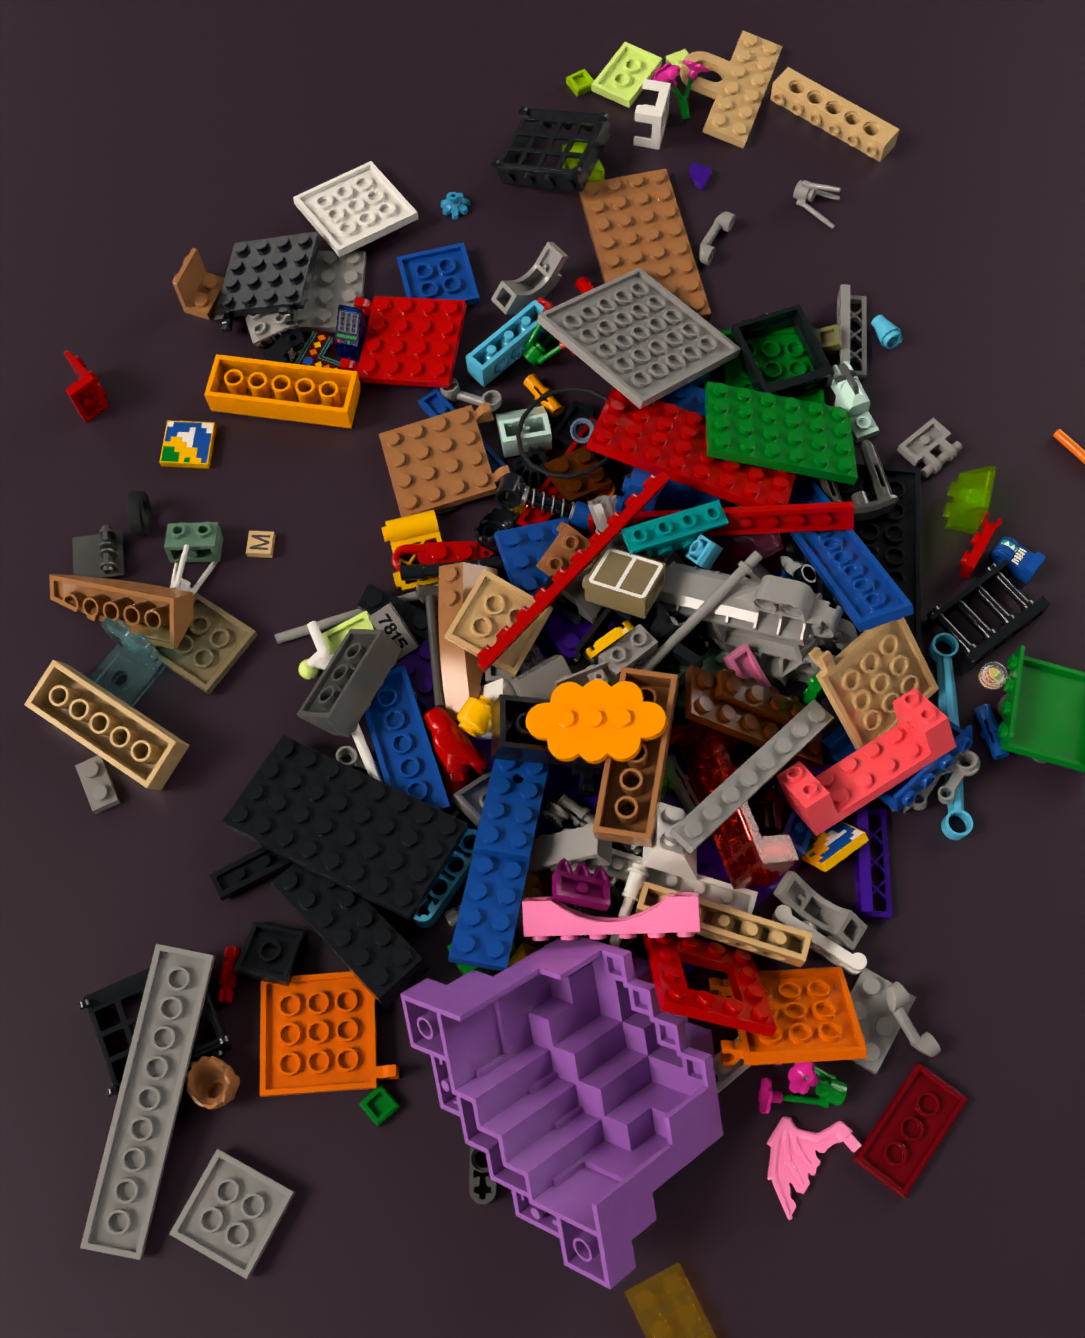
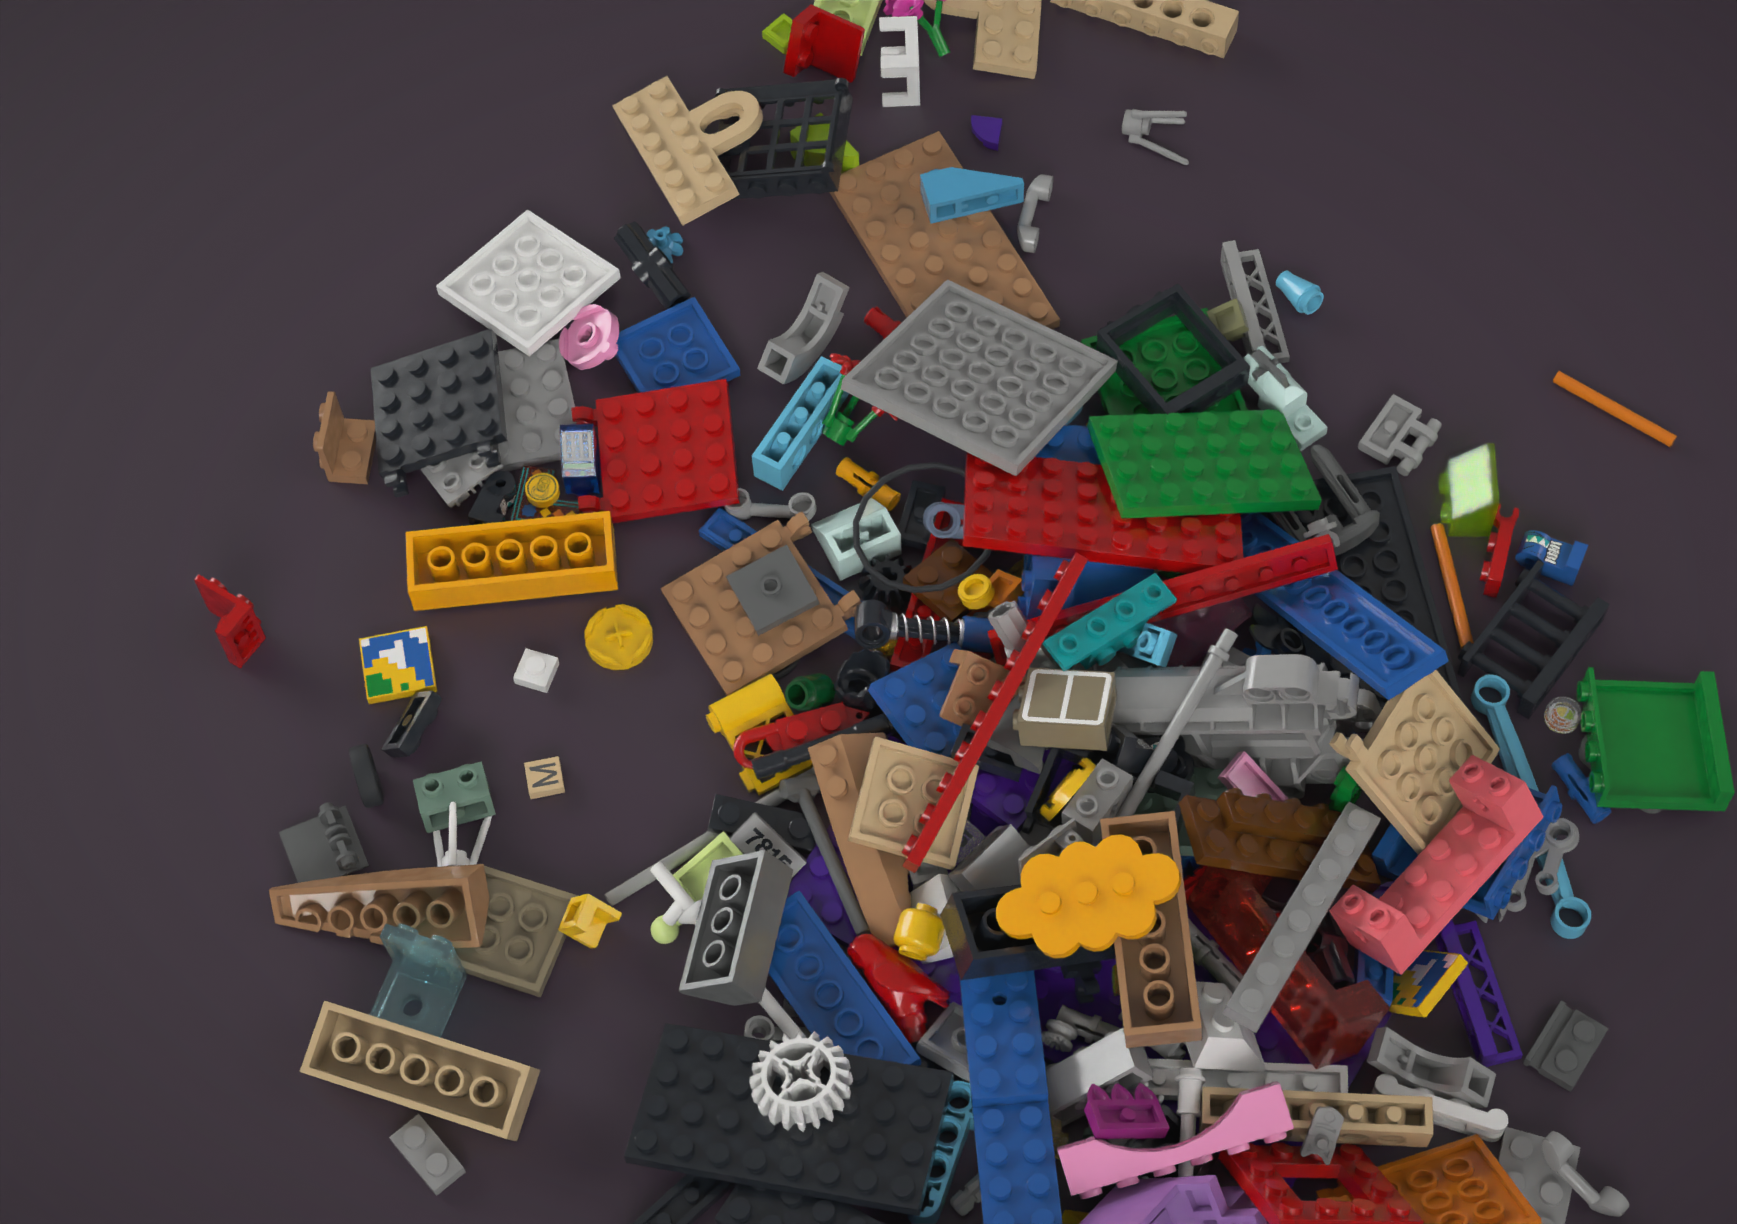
camera: 15 degrees left, 5 degrees down
(189, 480) = (412, 723): none -> black plate
(255, 649) = (587, 919): none -> yellow panel
(278, 470) = (536, 670): none -> white plate
(320, 349) = (542, 490): none -> yellow tile
(341, 460) = (618, 637): none -> yellow tile
(362, 787) = (802, 1094): none -> white gear
(385, 254) = (601, 344): none -> bright pink plate
(441, 214) = (651, 265): none -> black piece
(451, 451) = (772, 590): none -> dark grey plate
(456, 528) = (810, 692): none -> dark green brick
(483, 140) = (679, 150): none -> tan plate
(590, 485) = (976, 591): none -> yellow tile
(603, 91) = (825, 43): none -> red bracket
(608, 486) = (1006, 588): none -> orange plate
(668, 210) = (964, 192): none -> dark azure slope
(722, 939) = (1323, 1133): none -> light grey piece
(853, 496) = (1322, 528): none -> light grey plate
(926, 918) = (1565, 1046): none -> dark grey plate
(937, 561) = (1451, 584): none -> orange bar

